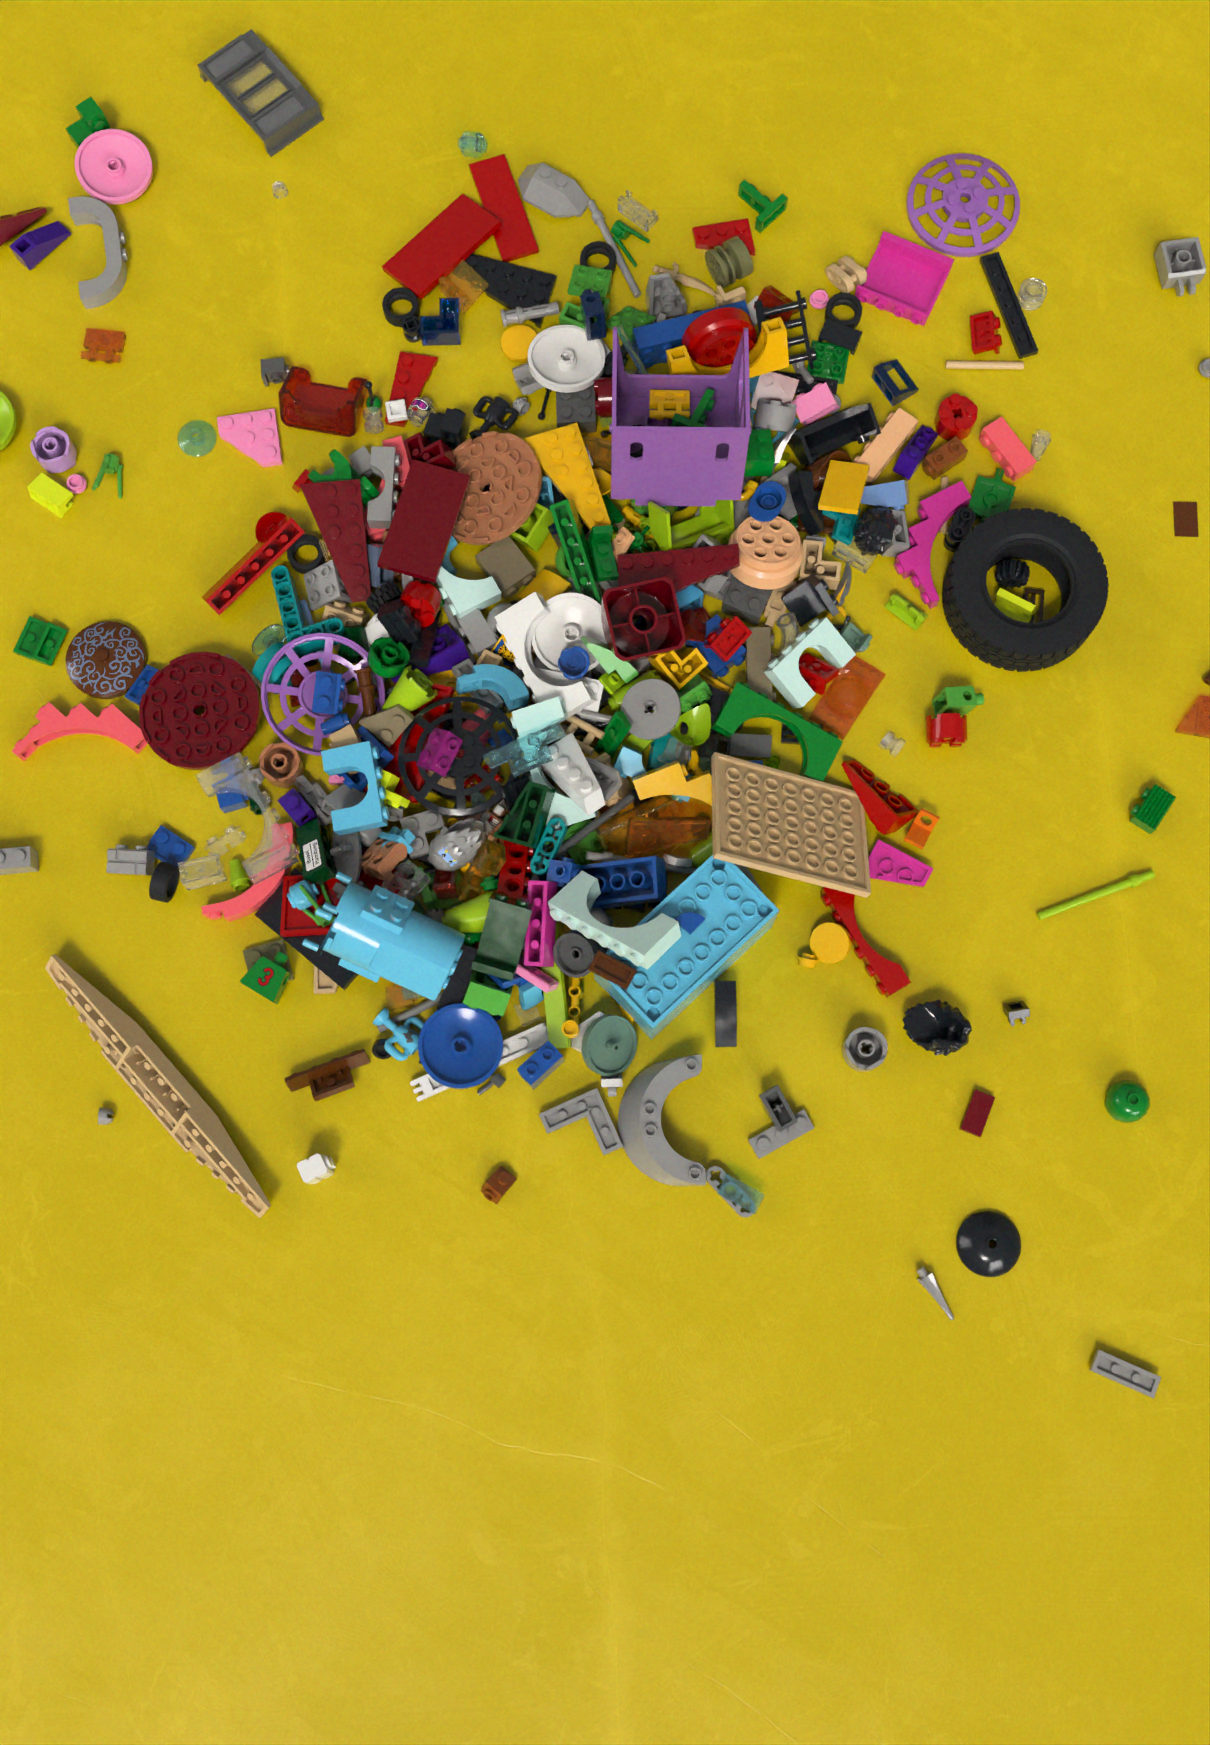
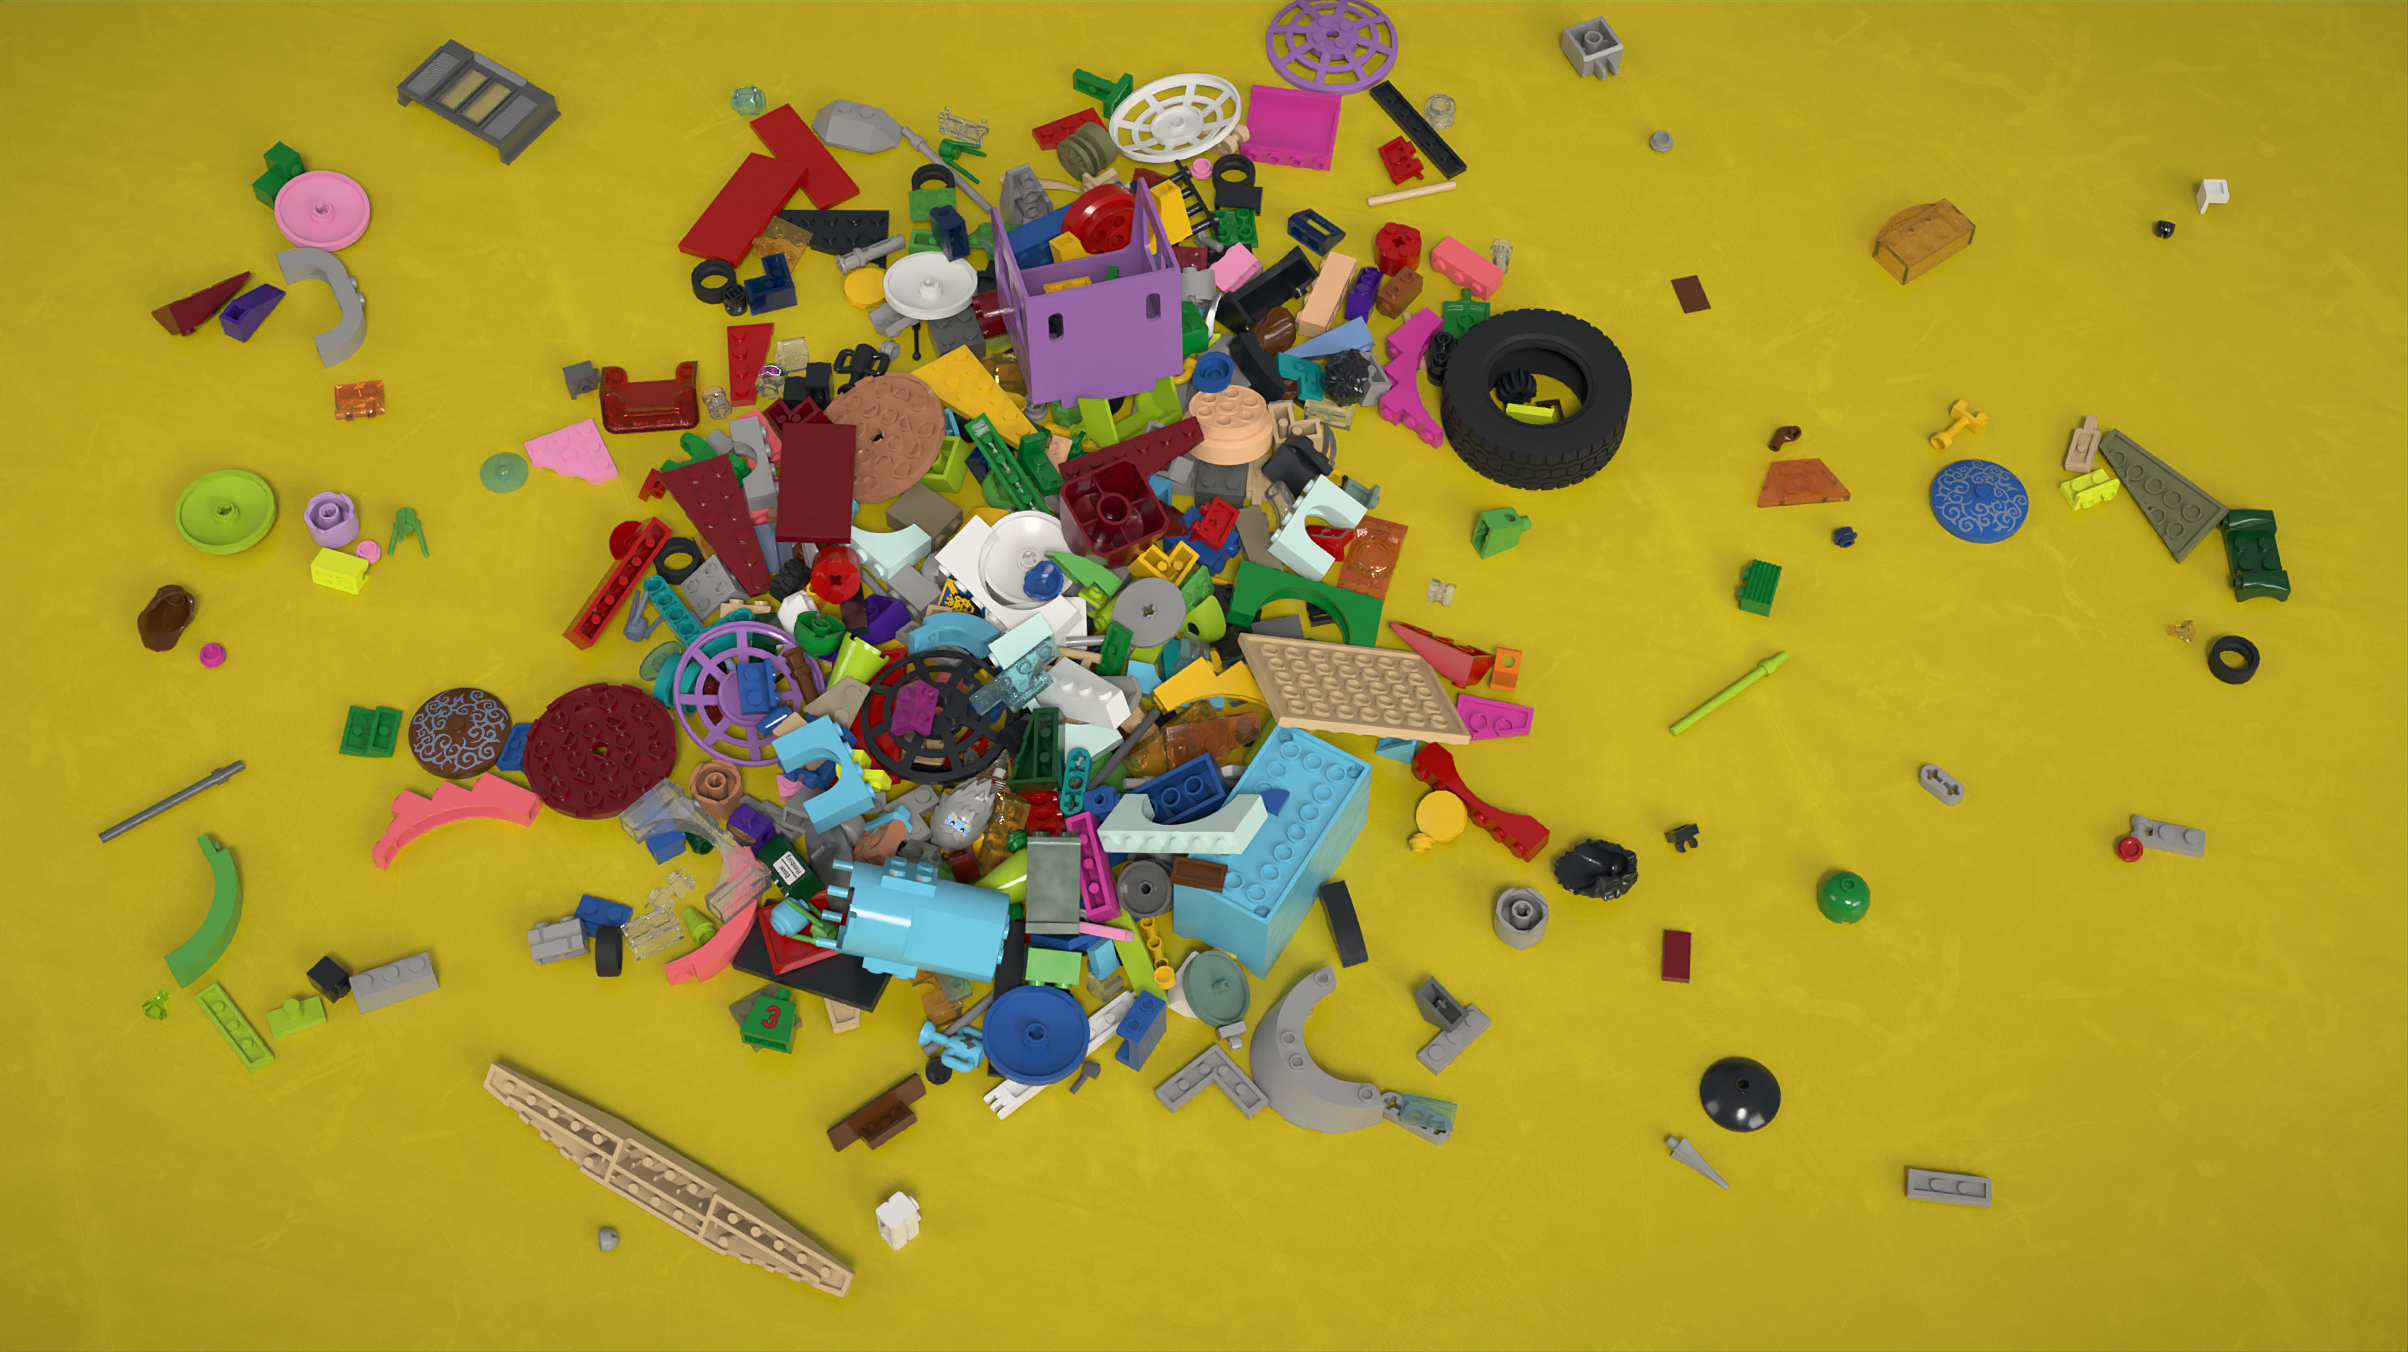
camera: 20 degrees left, 20 degrees down
(259, 604) = (636, 626): none -> sand blue plant
(279, 190) = (530, 194): clear hinge -> none
(372, 399) = (709, 381): hinge -> none
(396, 410) = (742, 385): white tile -> none
(399, 622) = (818, 592): black brick -> none
(443, 391) = (792, 354): none -> clear brick
(498, 1185) = (1129, 1186): dark orange bracket -> none
(819, 245) = (1187, 117): none -> white dish
(843, 487) = (1295, 340): yellow tile -> none
(906, 611) = (1409, 456): lime hinge -> none
(946, 729) = (1498, 561): red brick -> none

